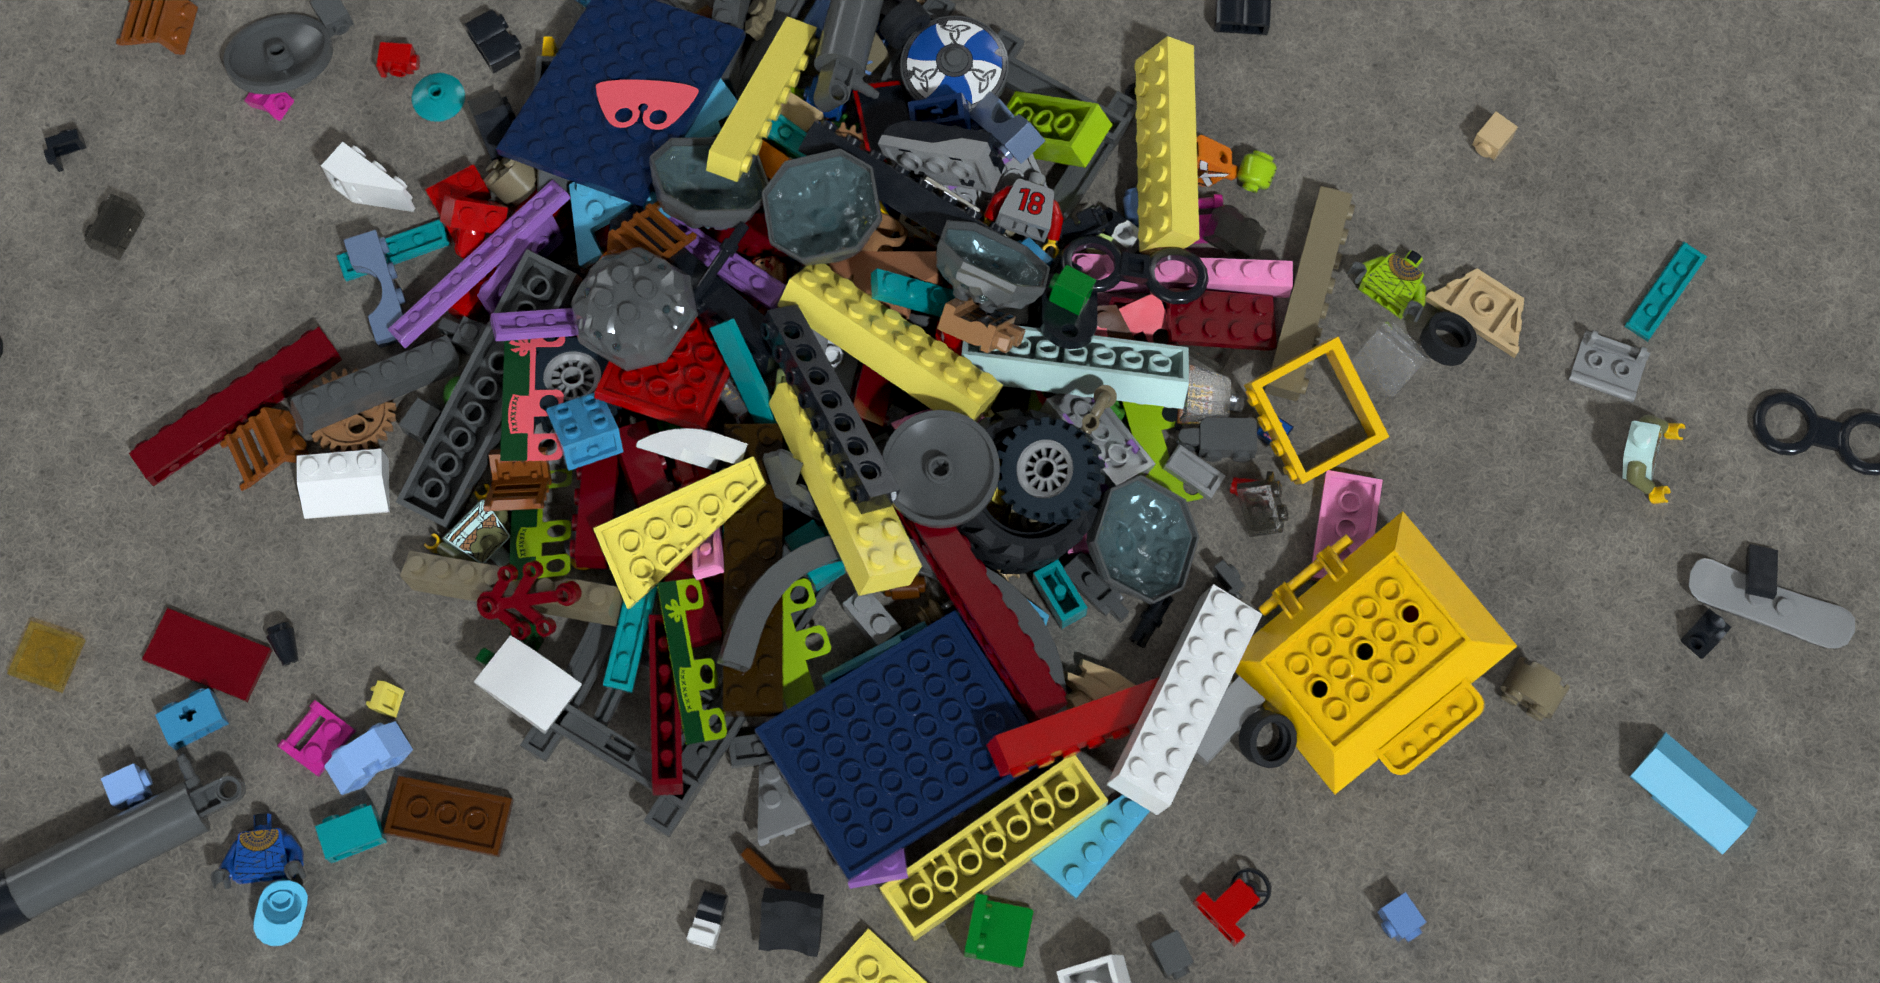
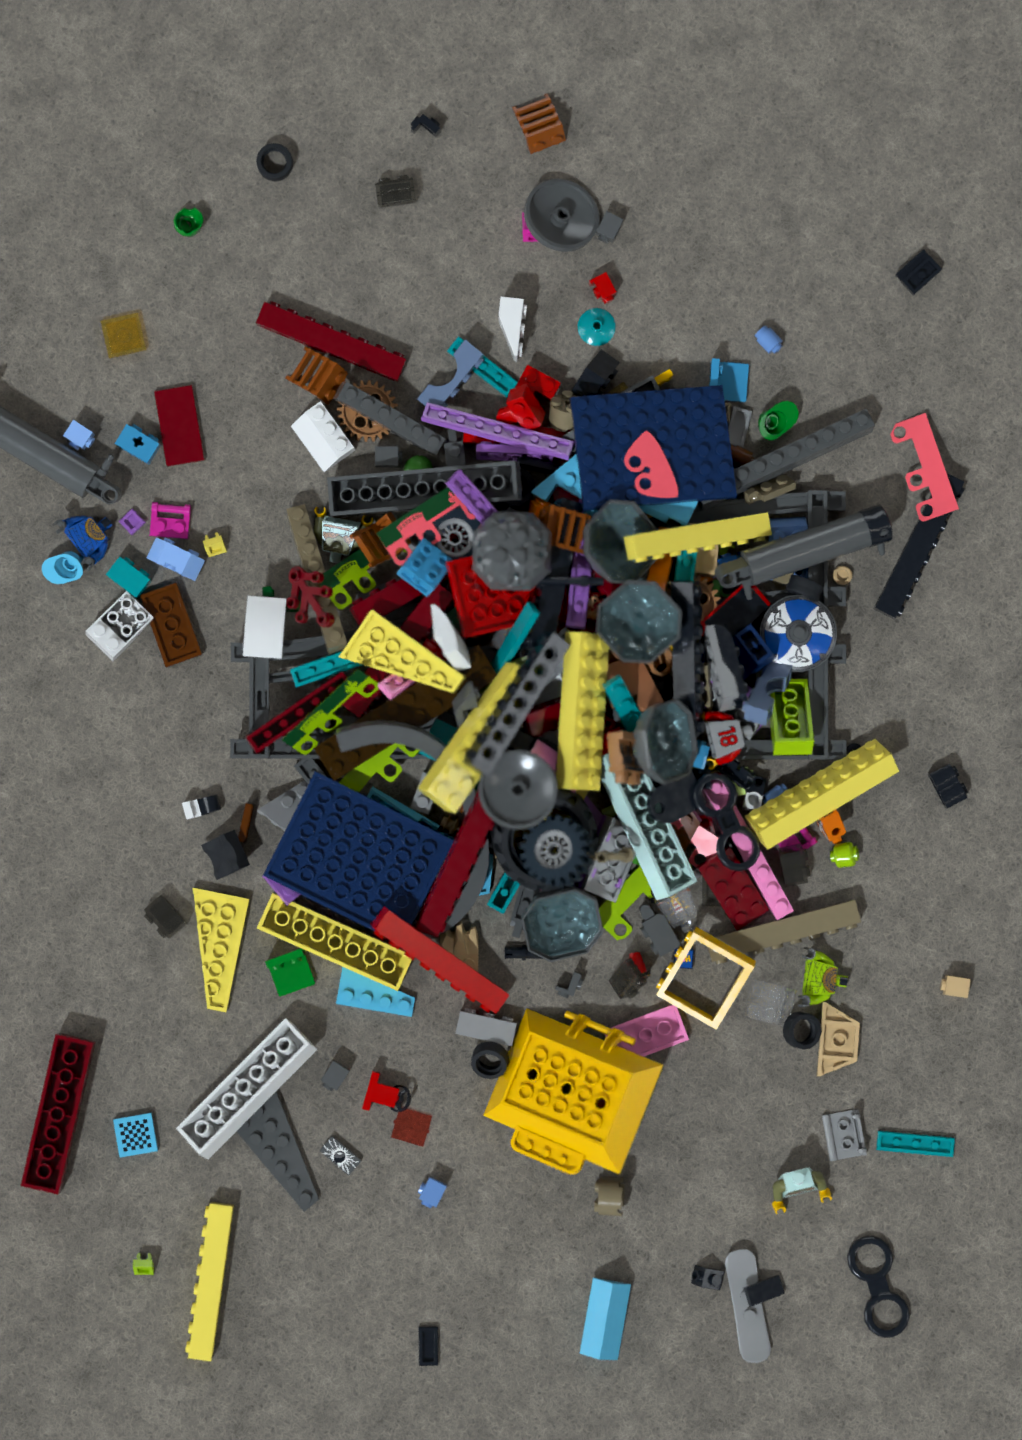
camera: 55 degrees right, 15 degrees up
(283, 642) = (211, 465): black cone -> none
(284, 788) = (132, 521): none -> medium lavender tile
(404, 885) = (119, 626): none -> white slope
(493, 41) = (651, 337): black brick -> none
(1071, 289) = (686, 794): green brick -> none
(1184, 700) = (480, 1001): white brick -> none
(1194, 472) = (628, 926): light grey tile -> none
(1297, 896) = (411, 1127): none -> clear red piece

